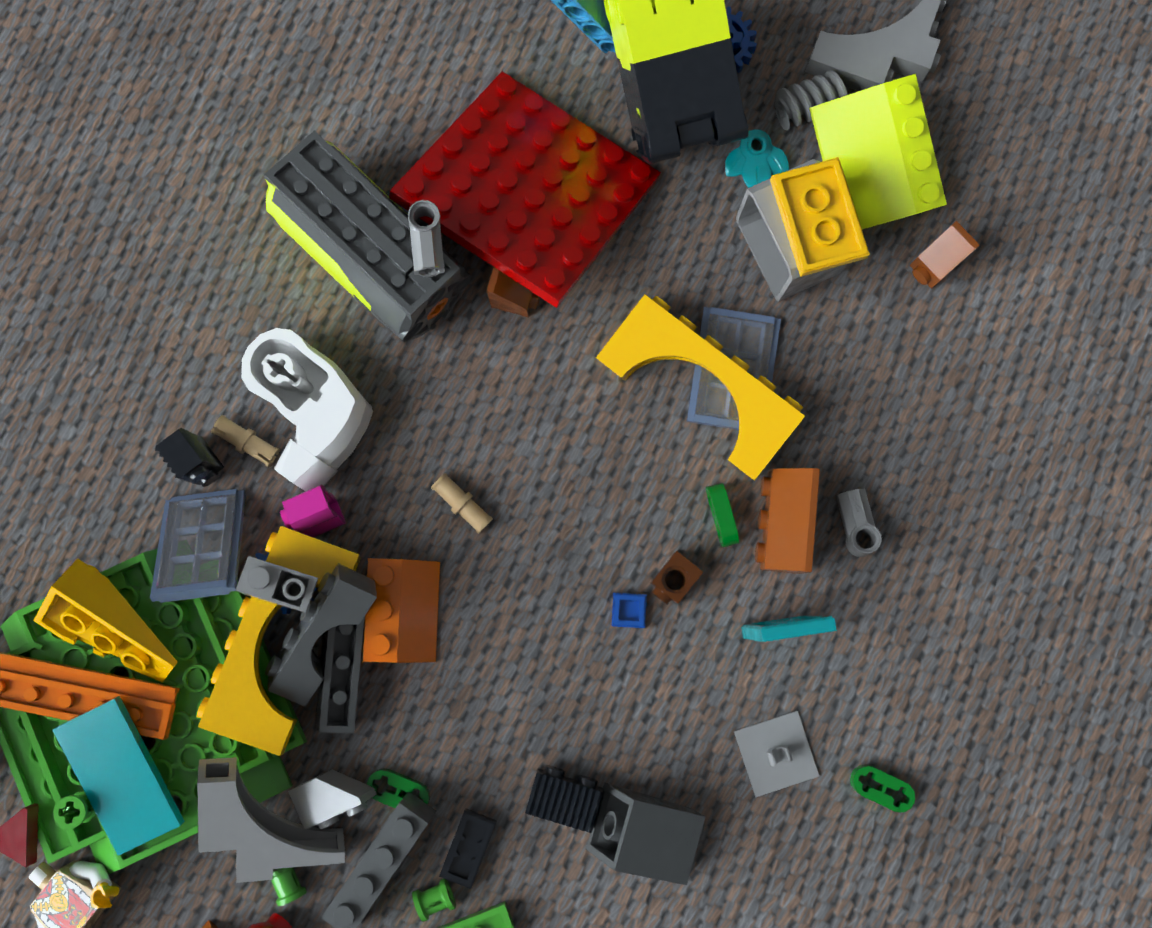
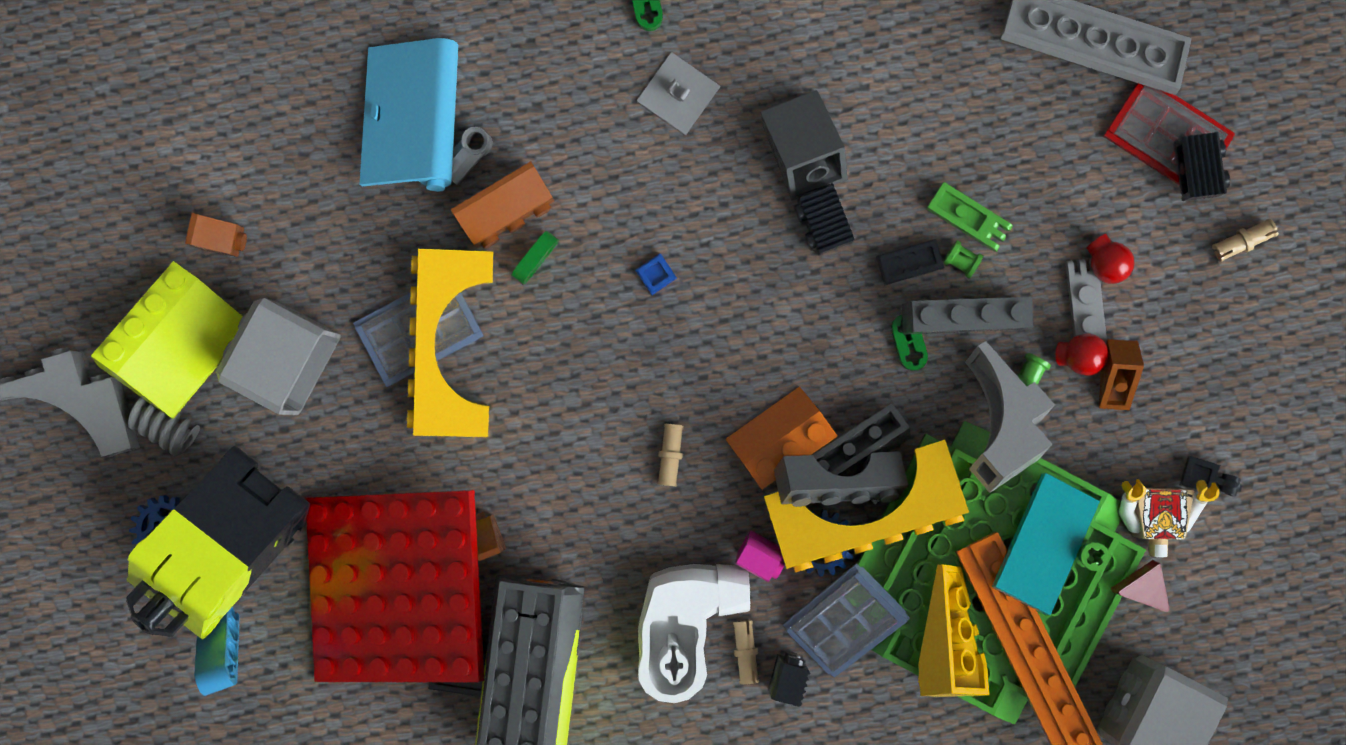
camera: 125 degrees left, 5 degrees up
(276, 584) = (828, 532): light grey slope -> none
(327, 796) = (948, 388): light grey slope -> none
(427, 240) = (499, 619): light grey piece -> none
(686, 568) = (598, 247): reddish brown brick -> none
(753, 164) = (245, 428): teal plate -> none
(788, 628) = (584, 149): teal tile -> none
(819, 216) = (262, 344): yellow tile -> none
(931, 500) = (410, 113): none -> medium azure door

